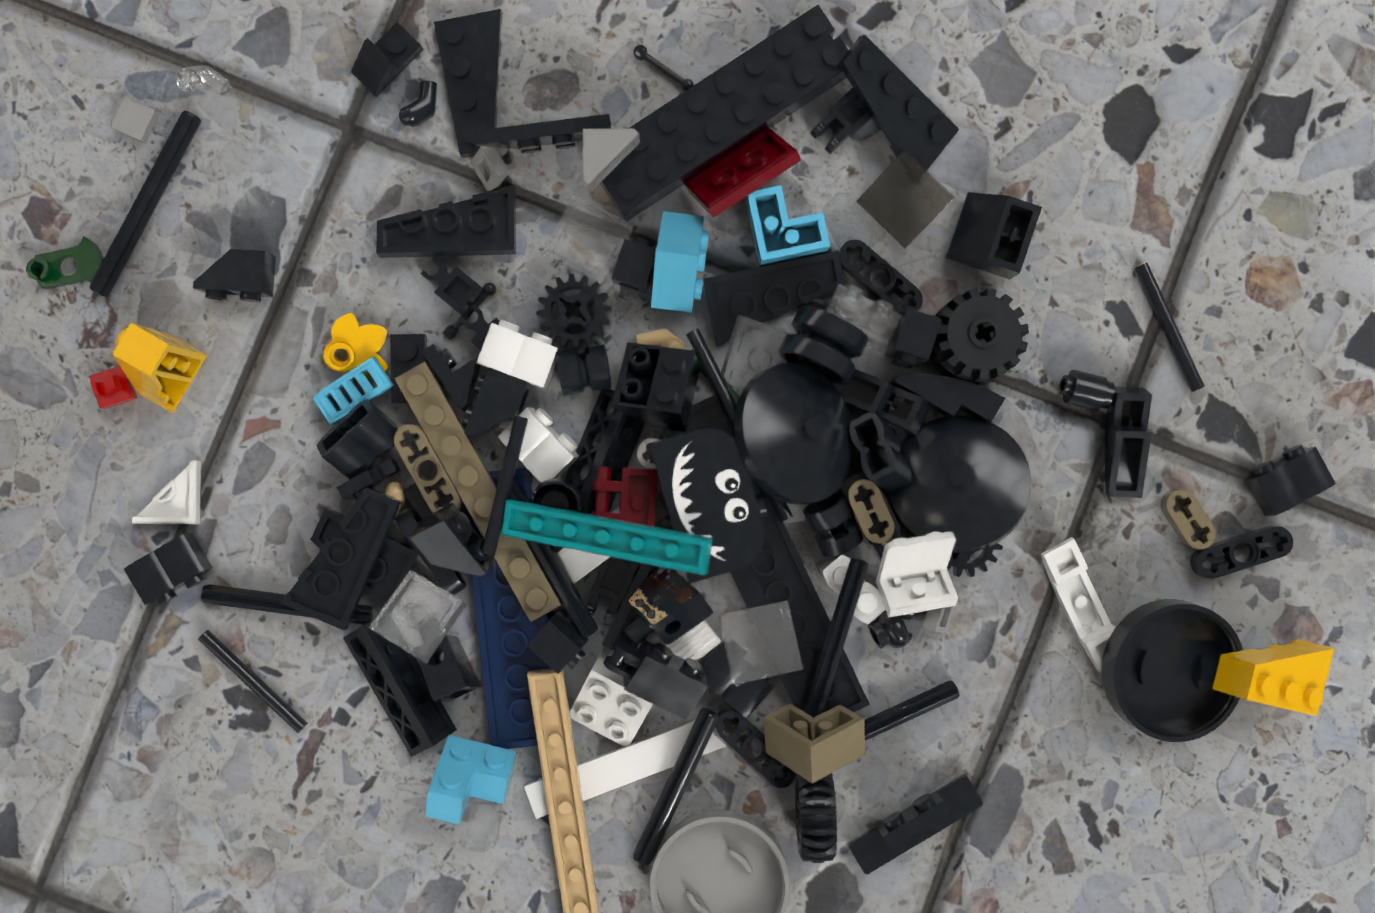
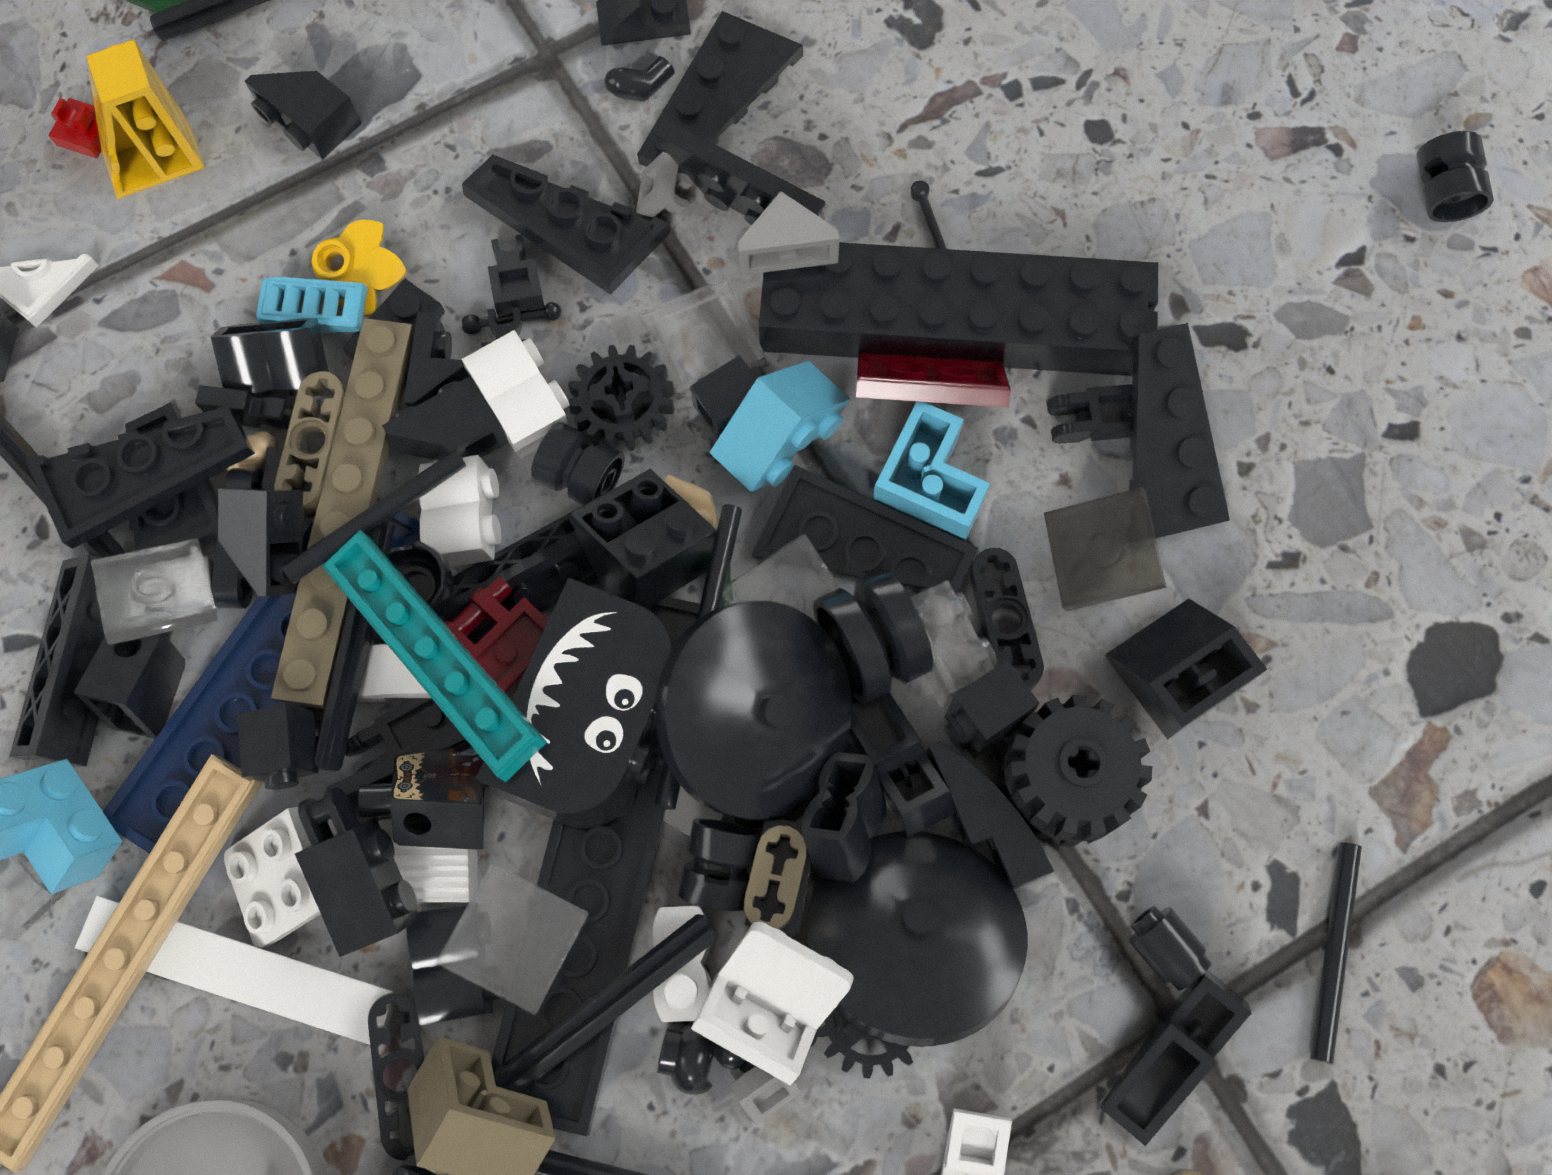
camera: 40 degrees right, 15 degrees down
(675, 786) = (266, 1042): black axle -> none

